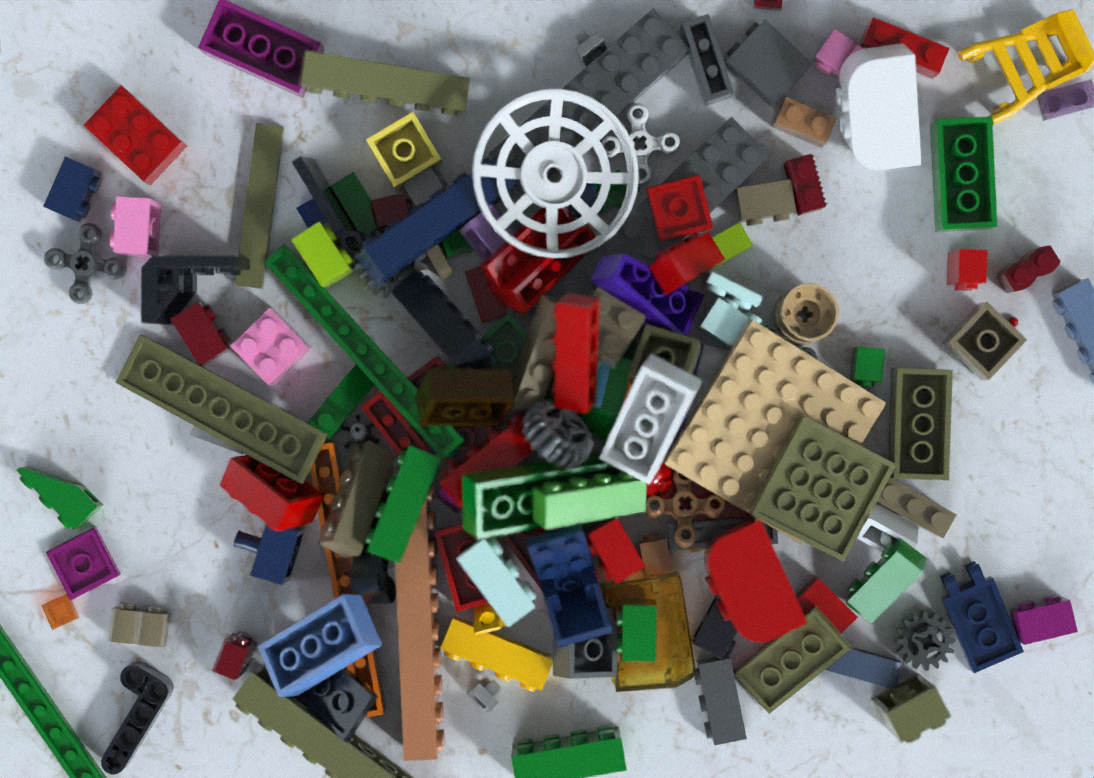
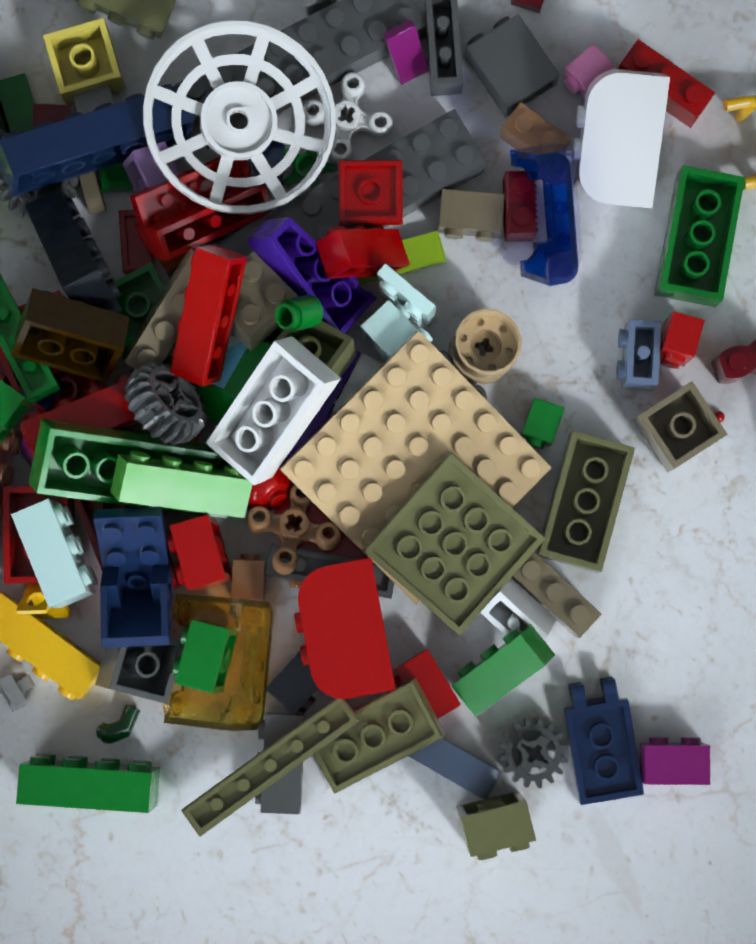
camera: 15 degrees right, 5 degrees down
(579, 705) = (120, 729): none -> dark green arm
(651, 331) = (299, 313): none -> green brick
(677, 76) = (405, 52): none -> magenta tile
(713, 706) = (269, 765): none -> olive tile
(848, 224) = (560, 256): none -> clear blue windscreen
(936, 288) = (640, 354): none -> sand blue brick

